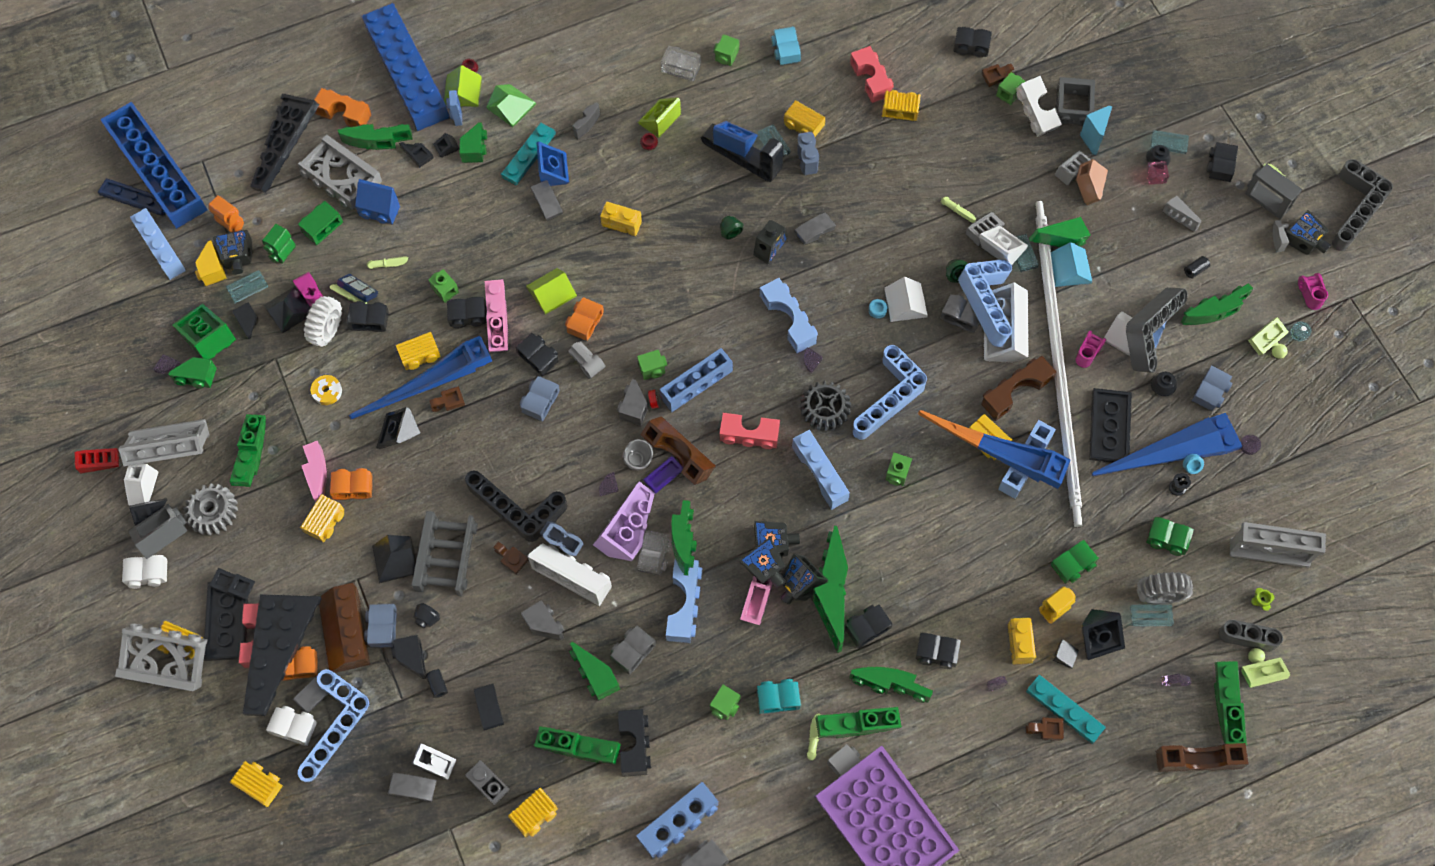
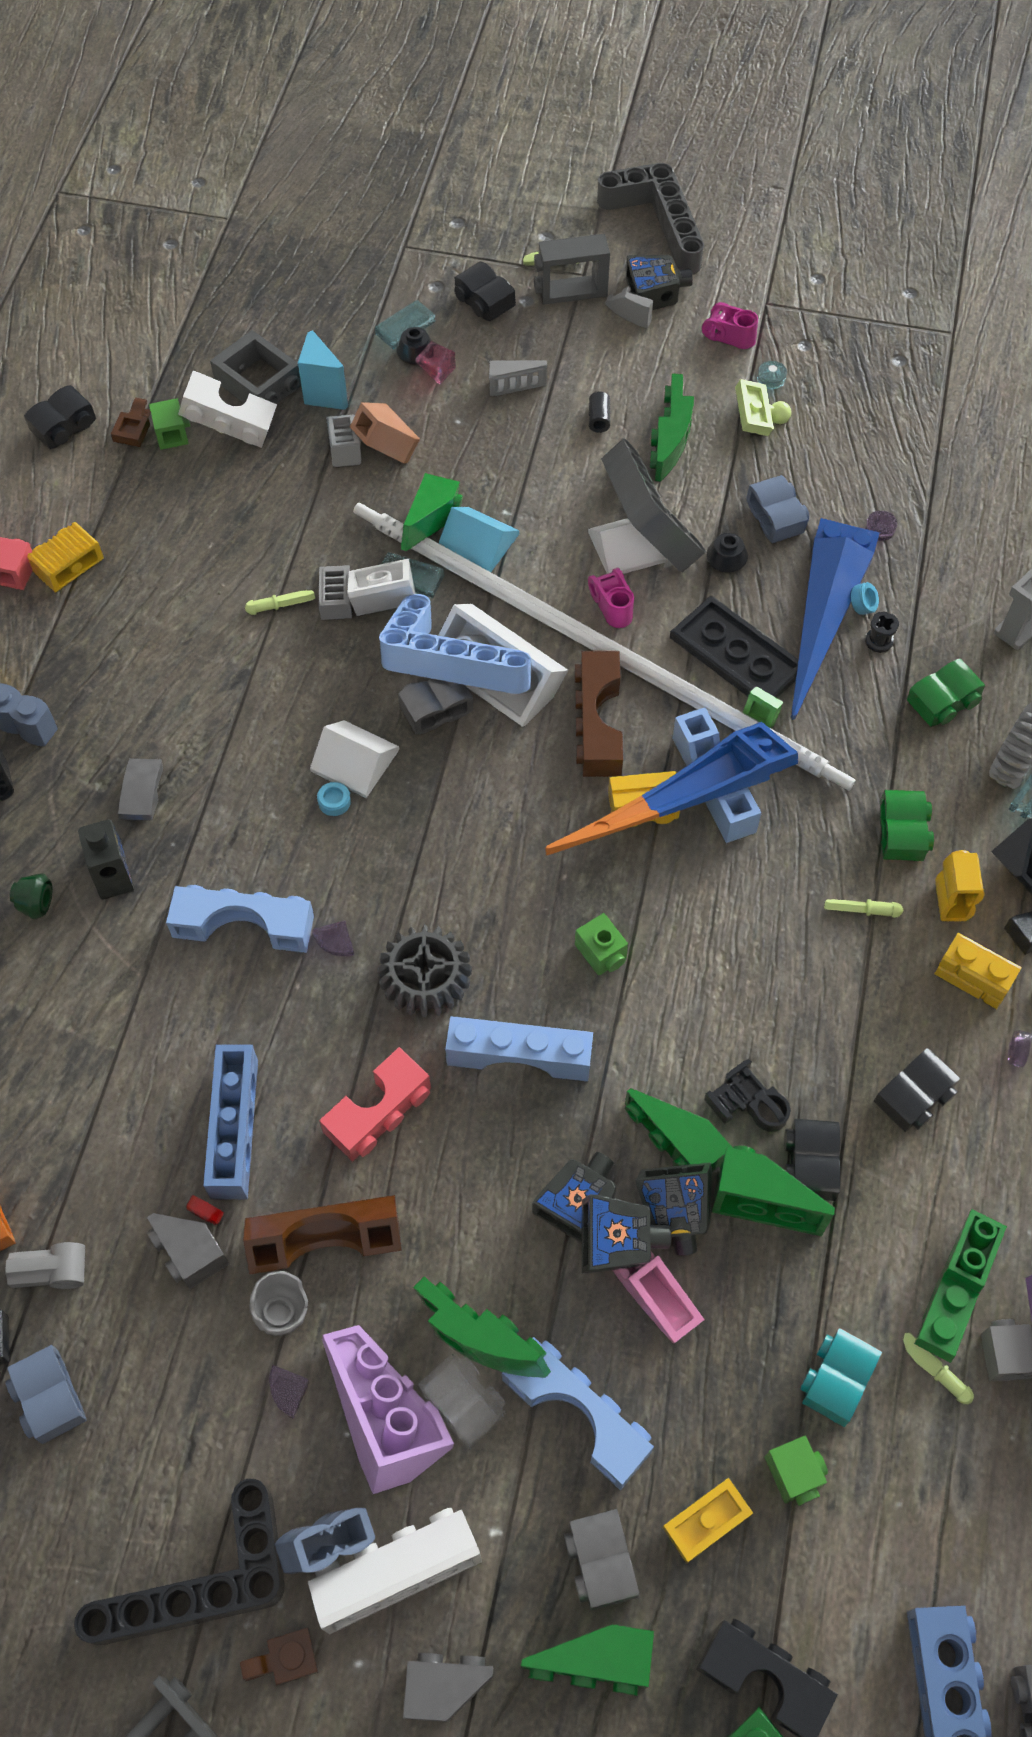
camera: 55 degrees left, 5 degrees down
(652, 364) = (146, 1170): bright green brick -> none
(663, 474) = (340, 1288): dark purple tile -> none
(678, 680) = (707, 1520): none -> yellow plate
(879, 579) = (747, 1090): none -> black piece
(883, 678) = (920, 1191): green slope -> none
(894, 397) = (490, 871): light blue beam -> none
(954, 269) = (365, 663): dark green cone -> none
(1016, 572) = (870, 907): none -> yellowish green piece
(1084, 457) = (762, 707): none -> bright green plate

